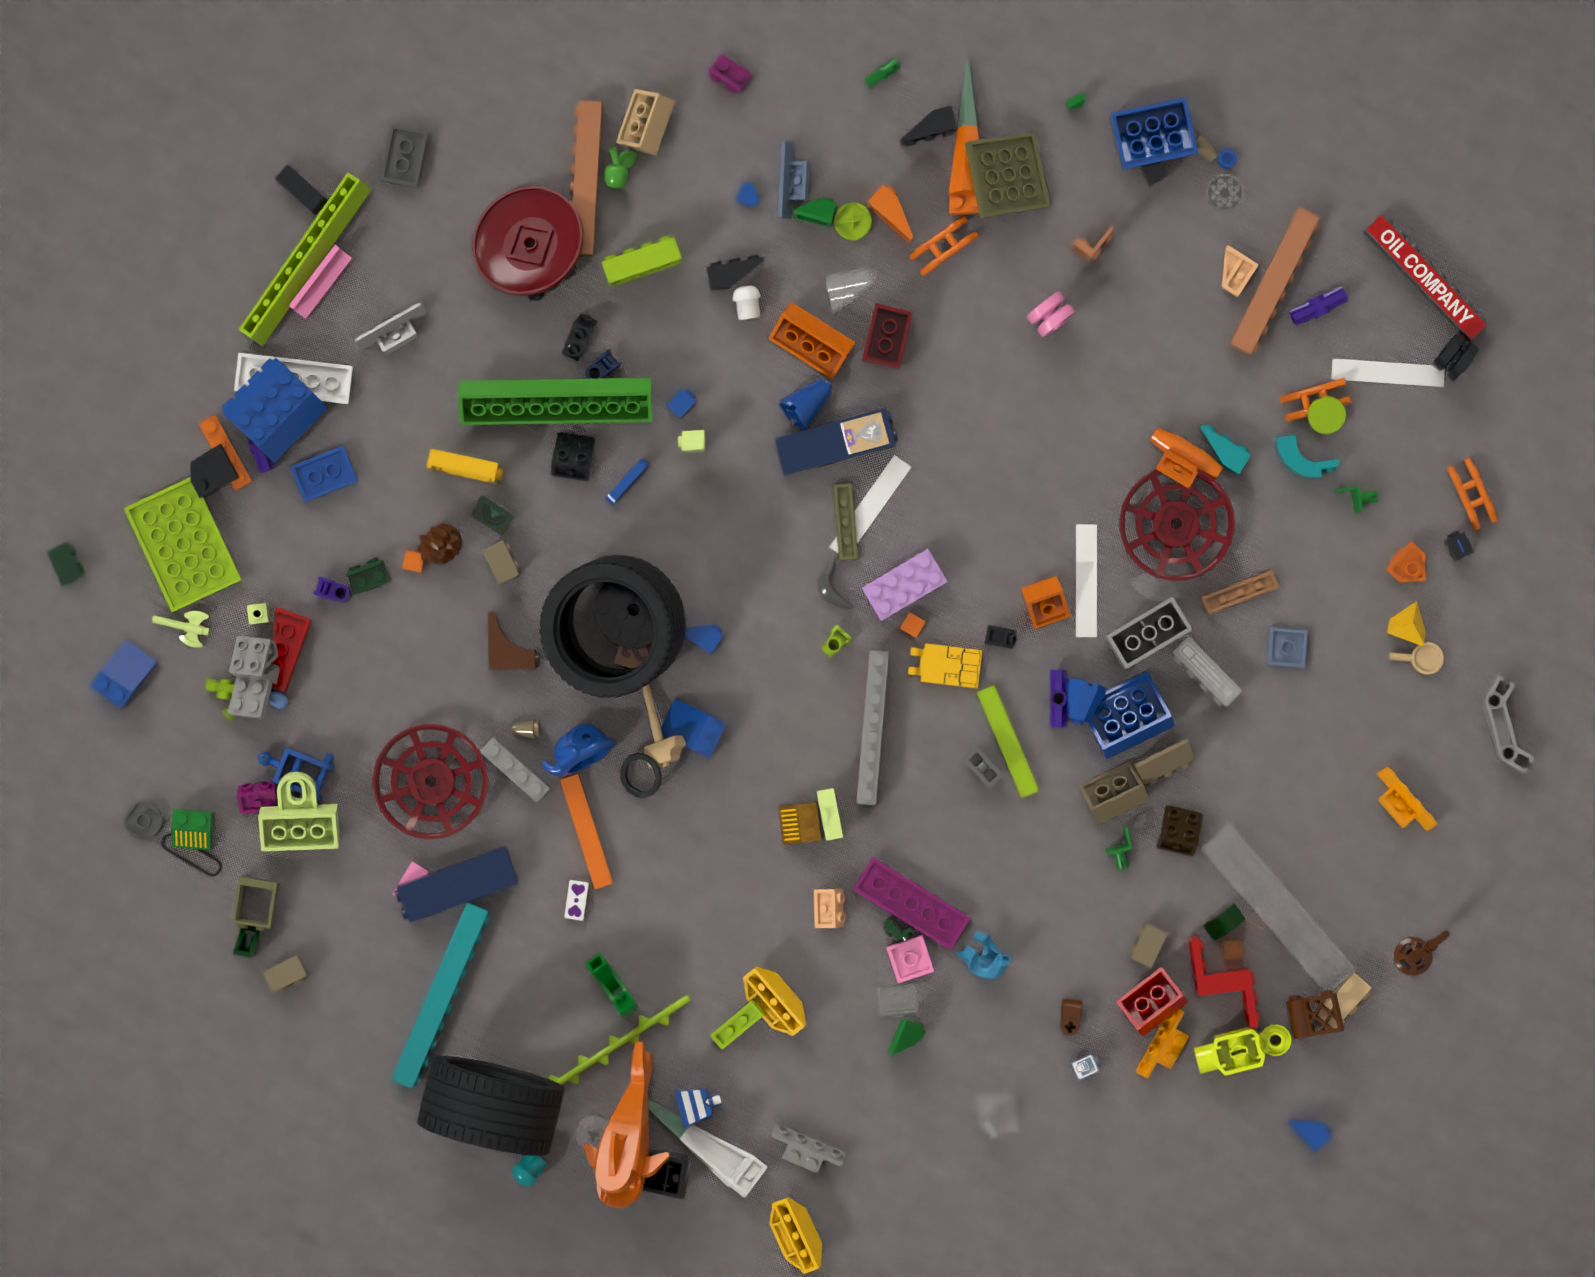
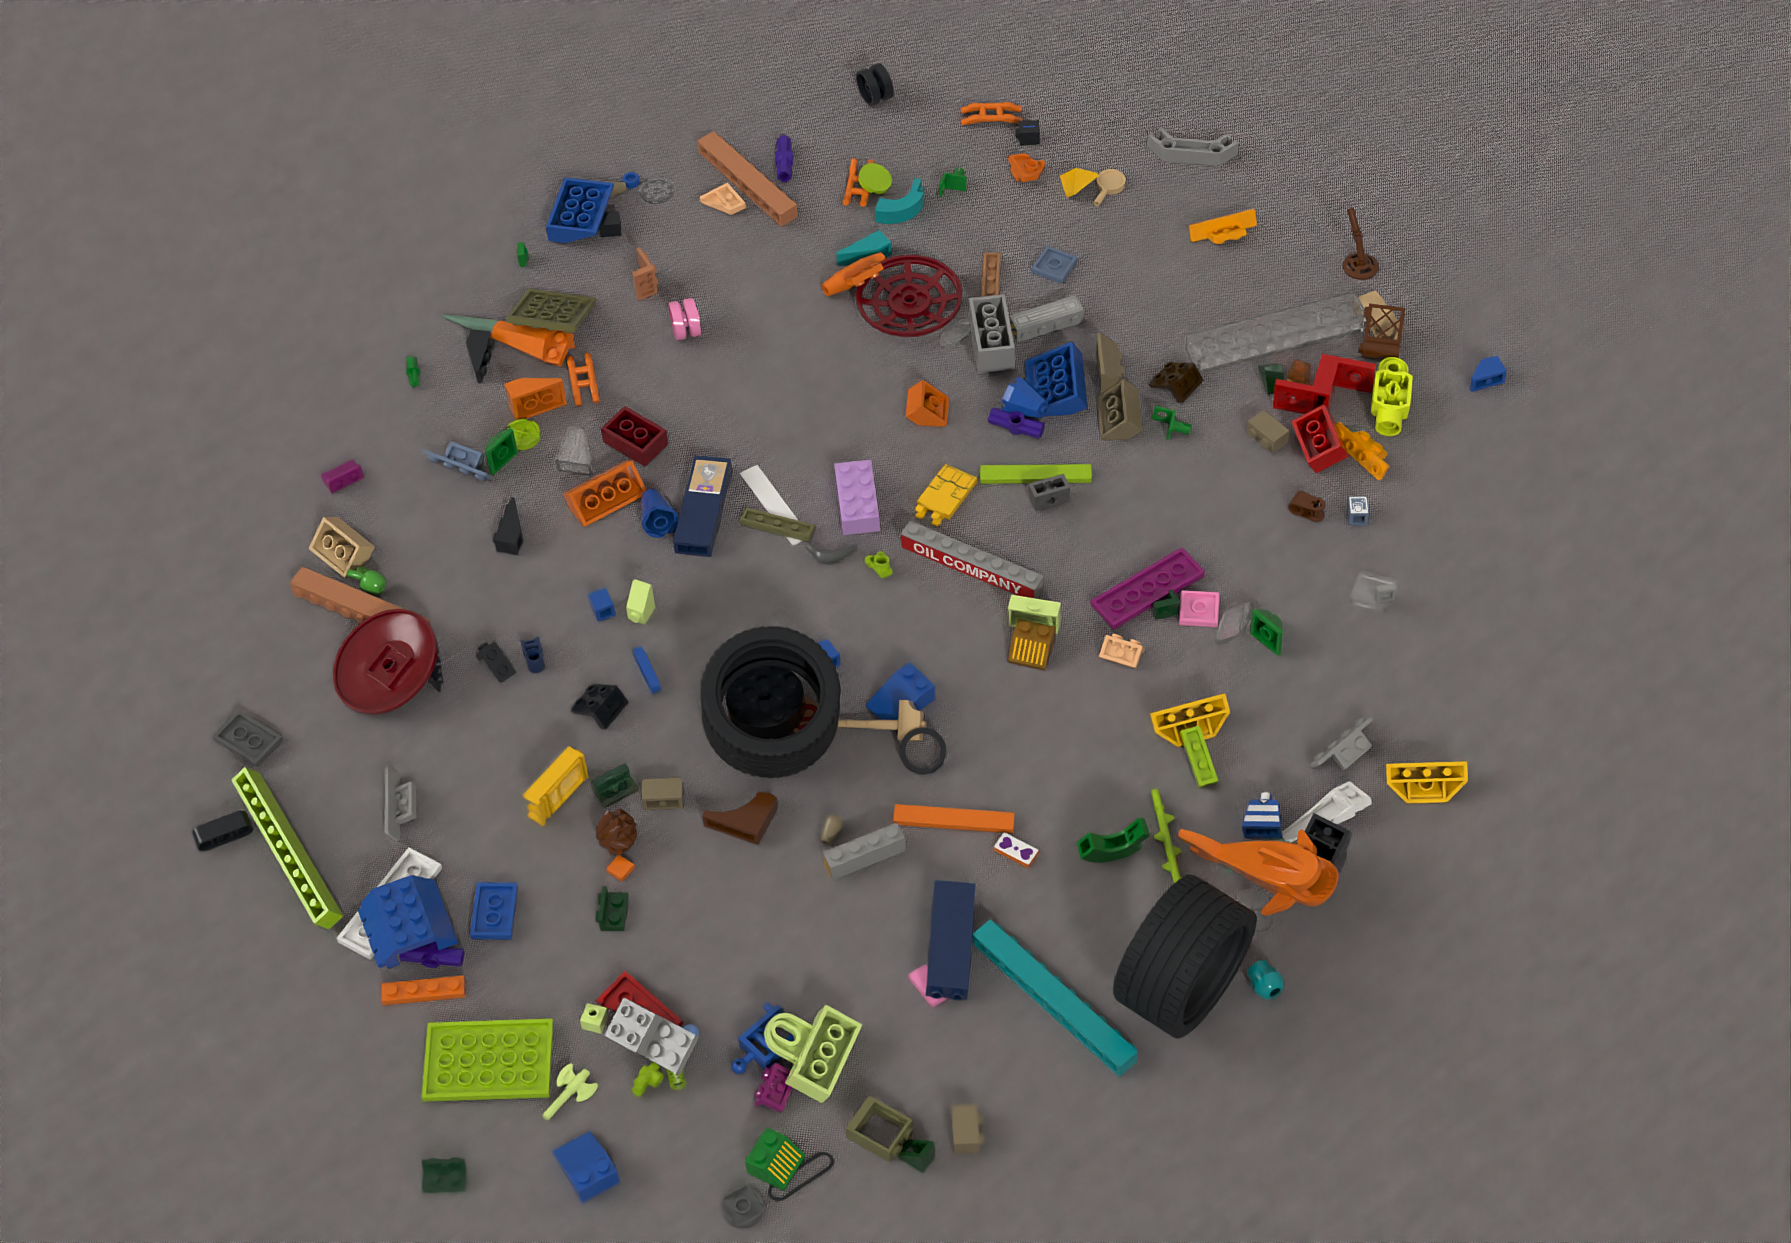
camera: 65 degrees left, 35 degrees down
(212, 472) = (433, 1002): black slope -> none
(320, 282) = (316, 847): bright pink fence -> none
(328, 589) = (605, 946): dark purple piece -> none
(417, 781) = (838, 916): dark red dish -> none
(555, 401) = (540, 692): bright green brick -> none
(579, 750) = (872, 789): blue piece -> none
(642, 262) = (458, 585): lime brick -> none
(747, 195) = (452, 498): blue tile -> none
(747, 302) = (543, 524): white piece -> none
(912, 625) = (895, 507): orange tile -> none
(990, 964) = (1229, 548): dark azure piece -> none
(1000, 637) = (940, 446): black bracket -> none
(1086, 580) = (915, 375): white sticker -> none
(1387, 372) = (863, 137): white sticker -> none
(1425, 278) = (797, 90): brick -> none

